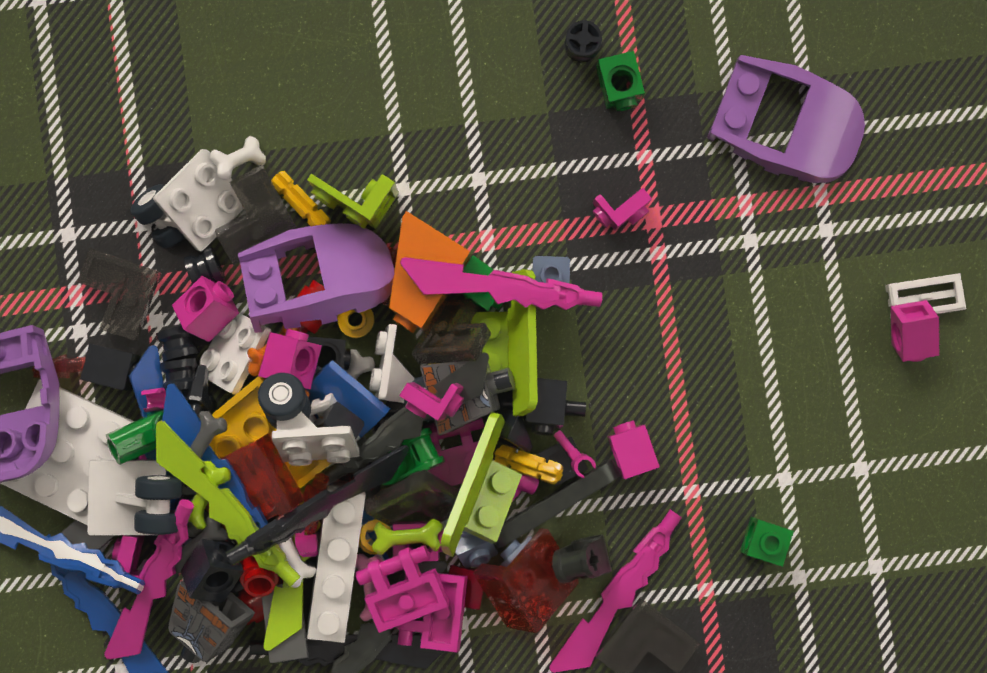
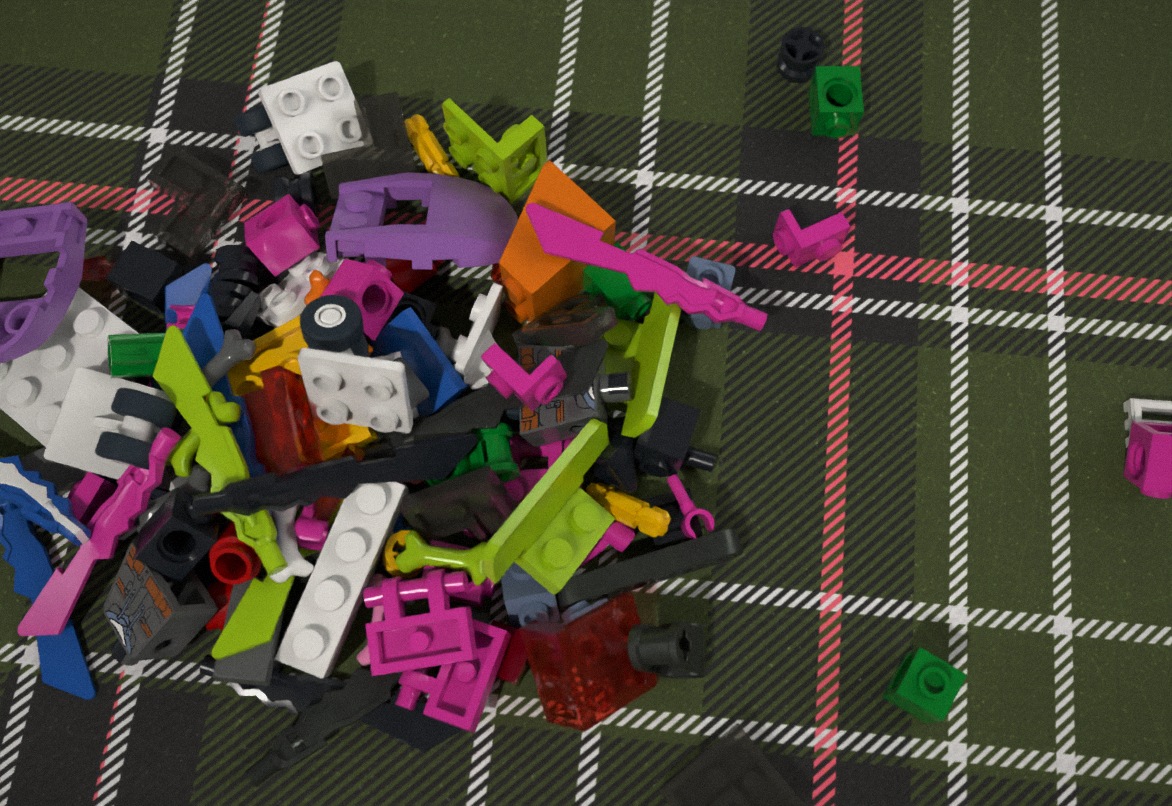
camera: 20 degrees right, 15 degrees down
(226, 163) = (357, 82): white piece -> none
(356, 331) = (457, 305): yellow plate -> none
(618, 594) = (652, 763): dark pink sword -> none
(632, 449) = (765, 524): dark pink brick -> none
(823, 135) = (1070, 211): medium lavender slope -> none

